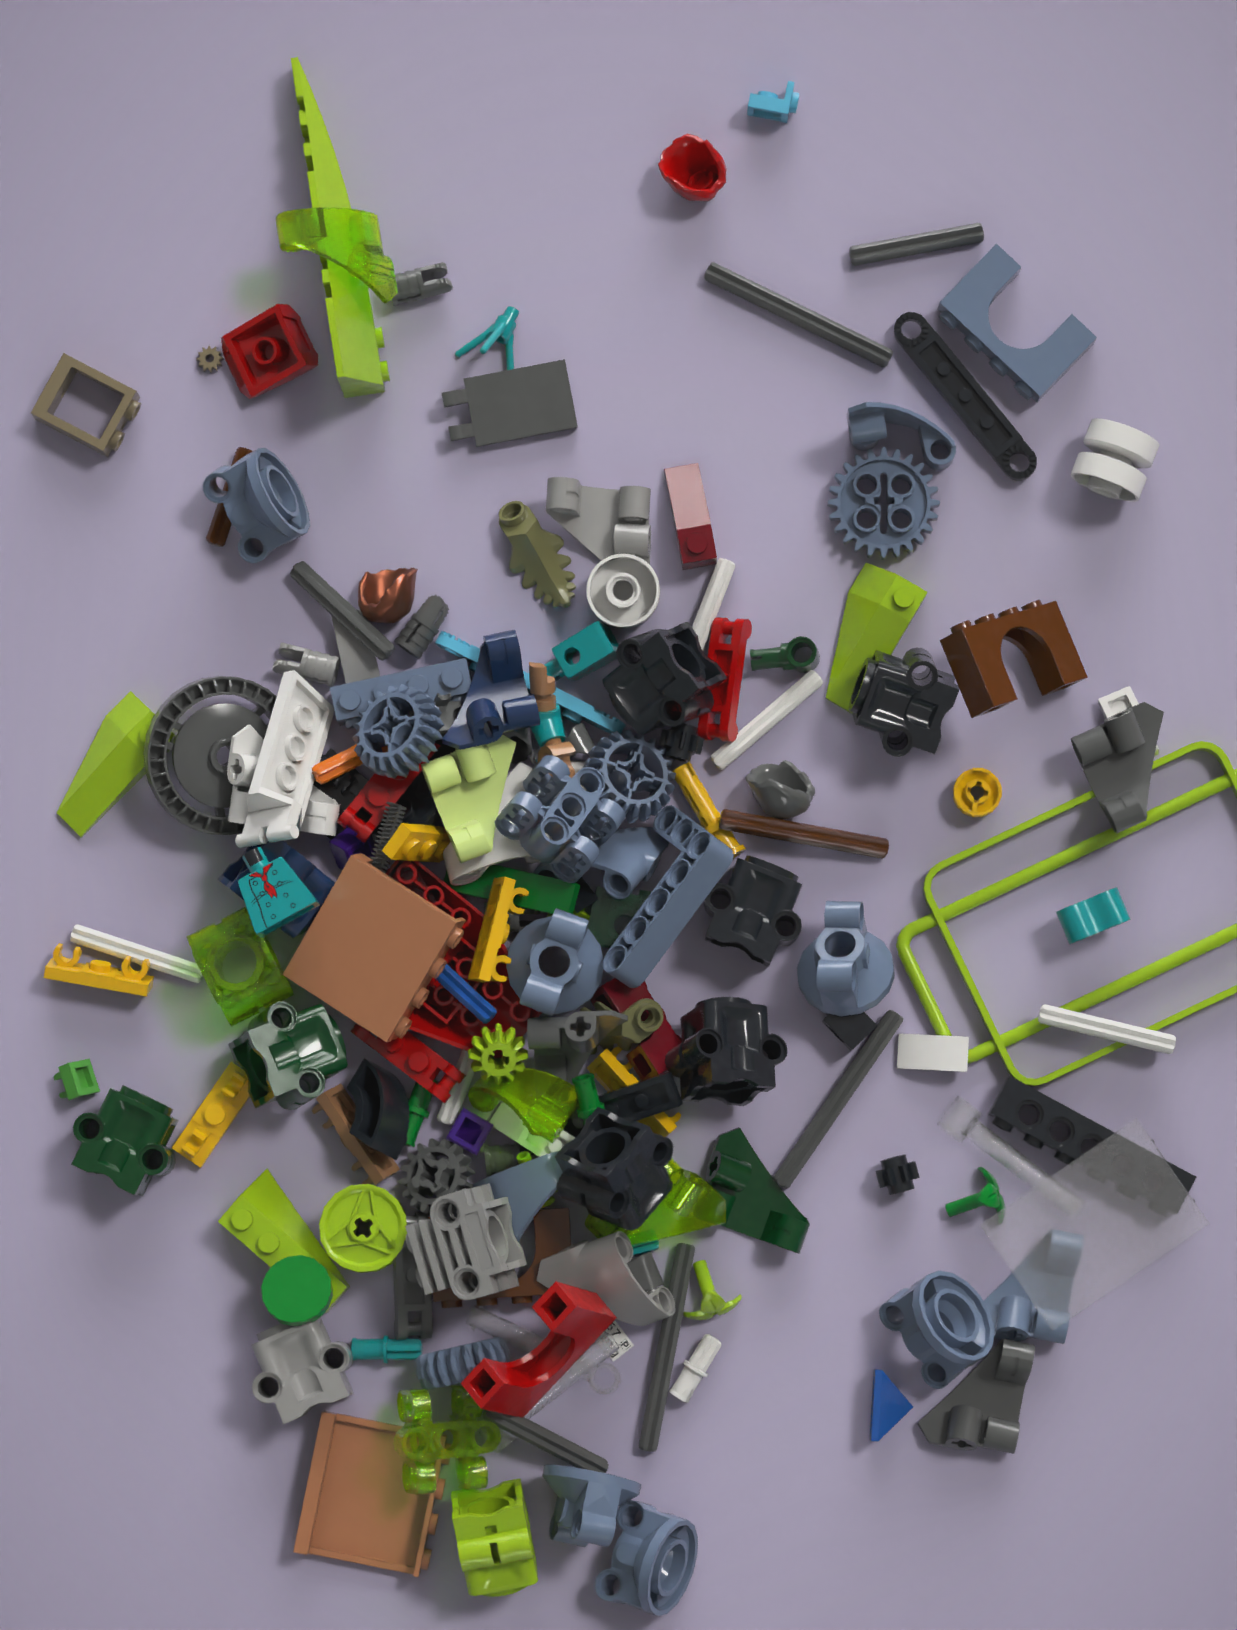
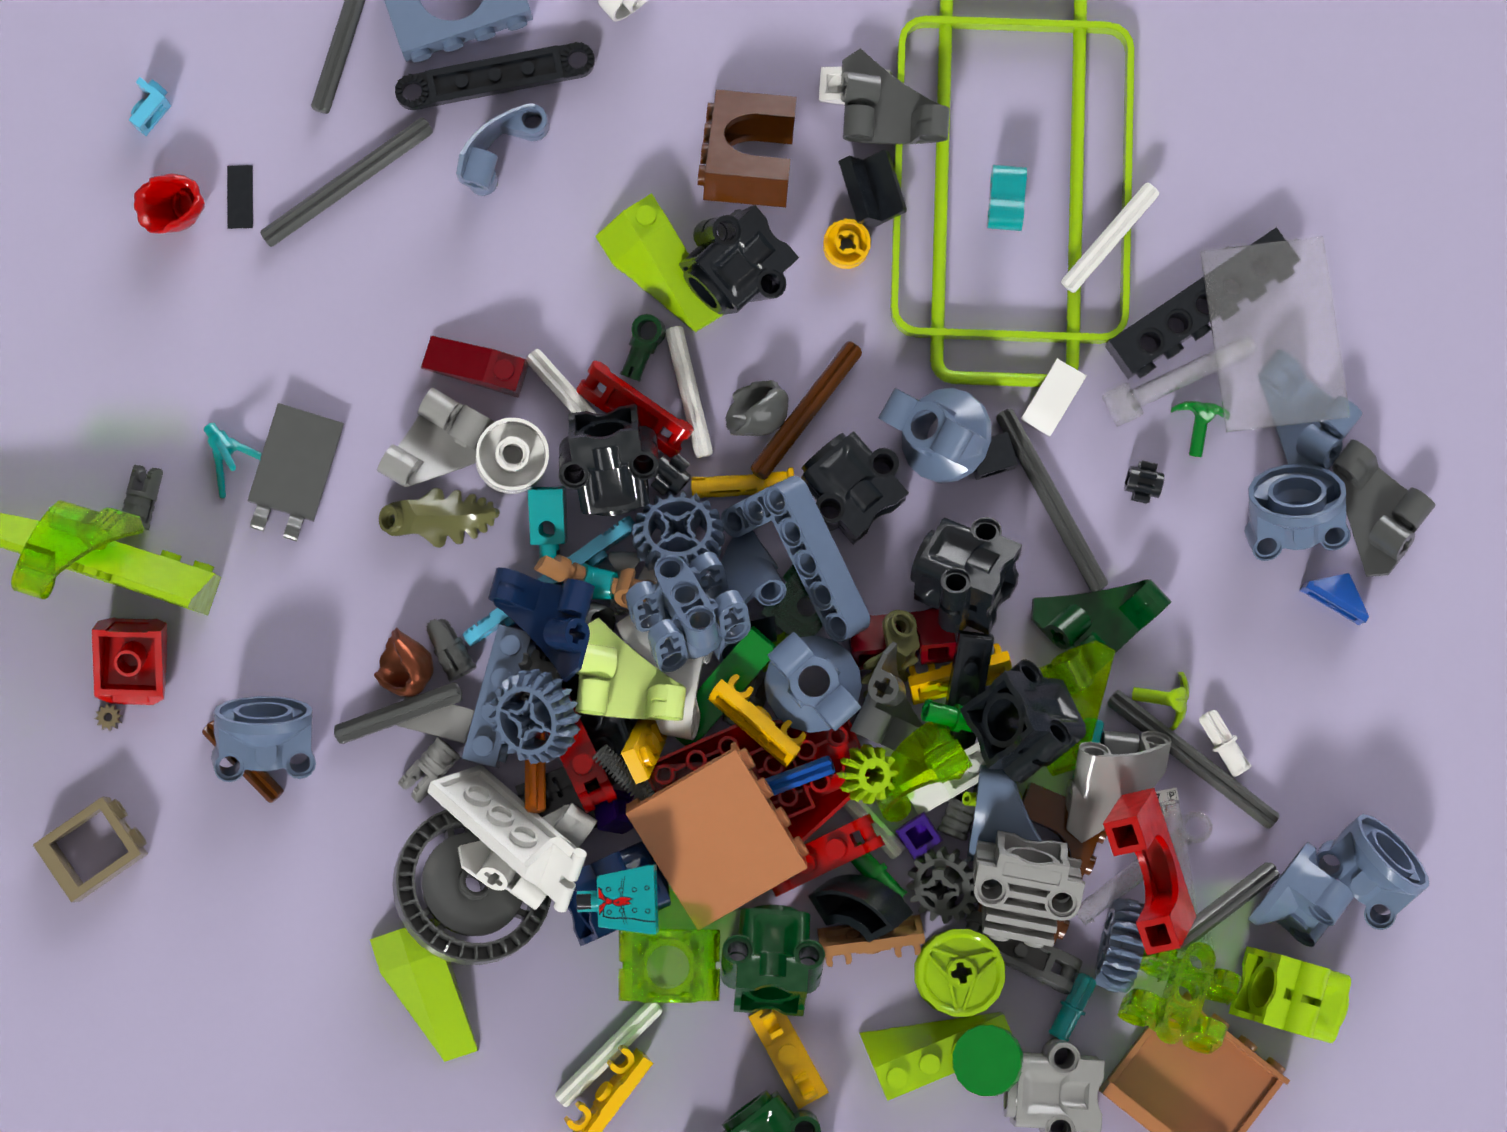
camera: 70 degrees left, 0 degrees up
(735, 227) = (240, 196): none -> black sticker
(852, 502) = (567, 167): sand blue gear -> none
(1039, 789) = (873, 188): none -> black panel

